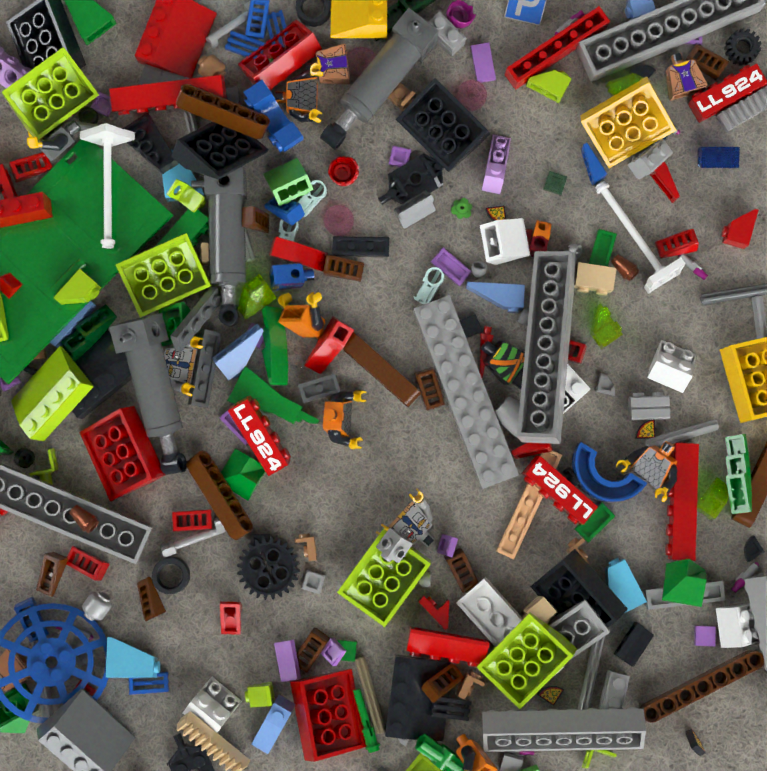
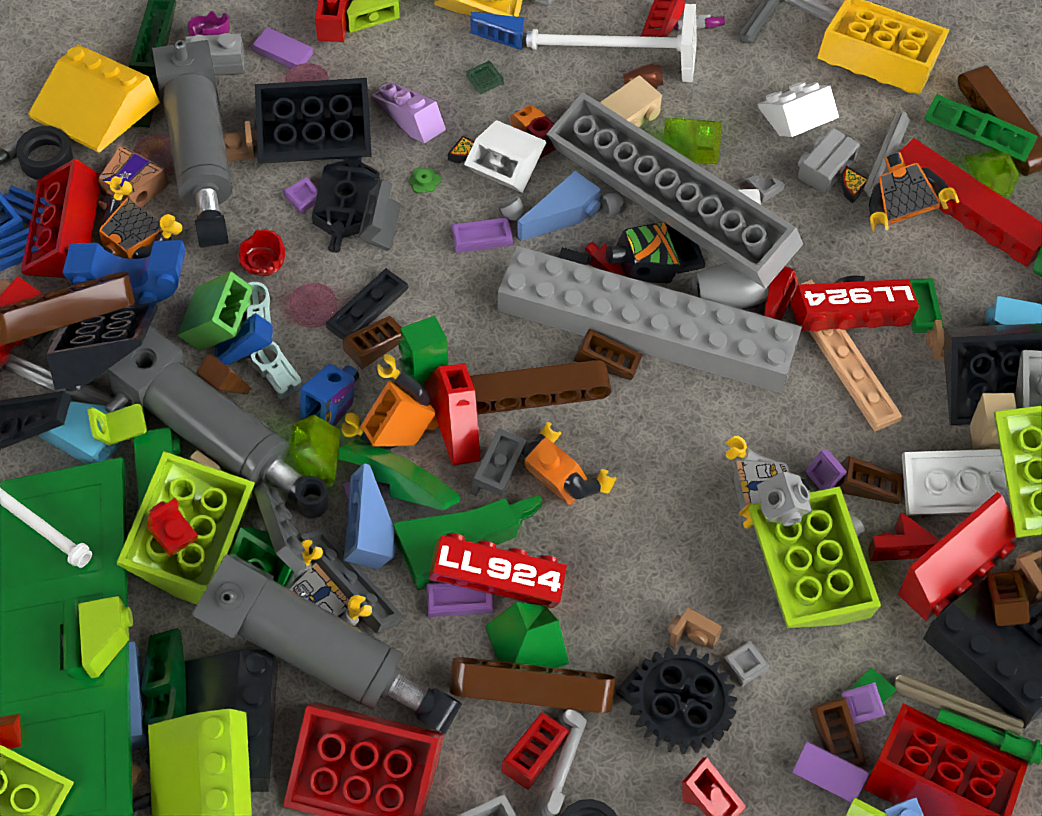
camera: 50 degrees left, 25 degrees down
(150, 273) = (170, 527): none -> red bracket
(298, 253) = (301, 364): red slope -> none
(341, 306) = (423, 348): none -> green brick
(429, 289) = (485, 272): light aqua piece -> none
(597, 487) = (841, 257): blue brick -> none
(602, 248) = (597, 81): green tile -> none

